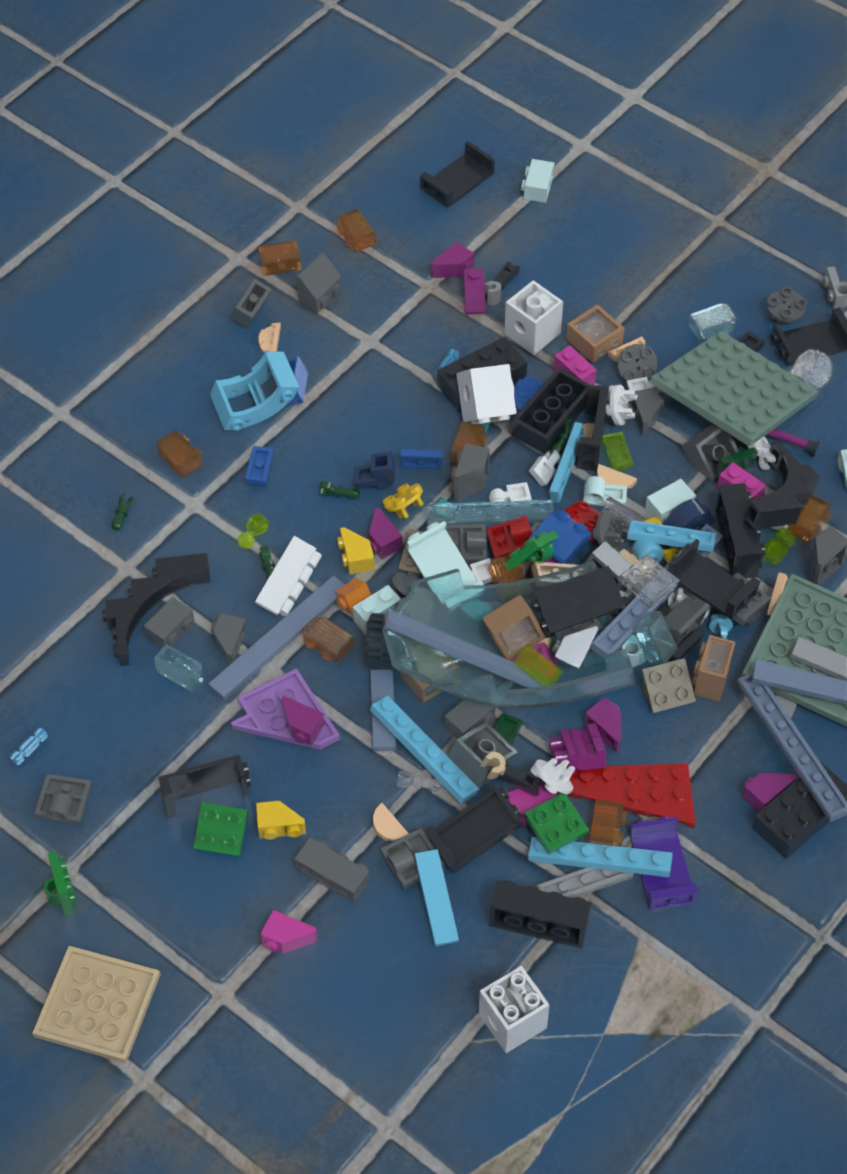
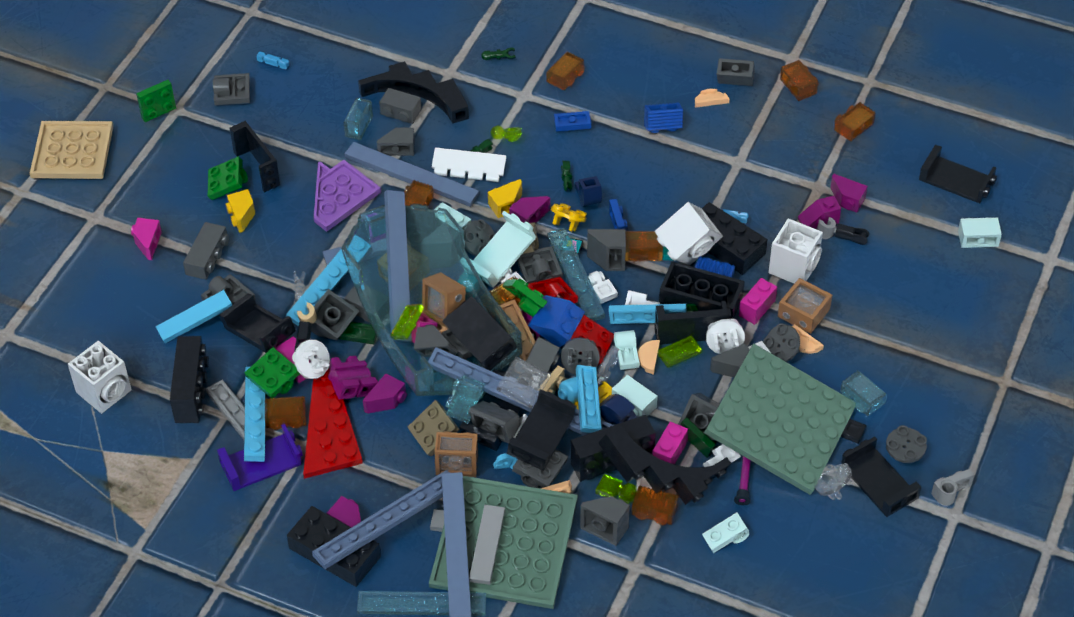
camera: 75 degrees right, 5 degrees down
(270, 365) = (653, 96): medium azure window -> none
(302, 721) = (326, 196): magenta slope -> none
(318, 284) = (776, 107): dark grey slope -> none
(352, 594) = (460, 203): orange brick -> none
(387, 825) = (256, 276): light nougat tile -> none

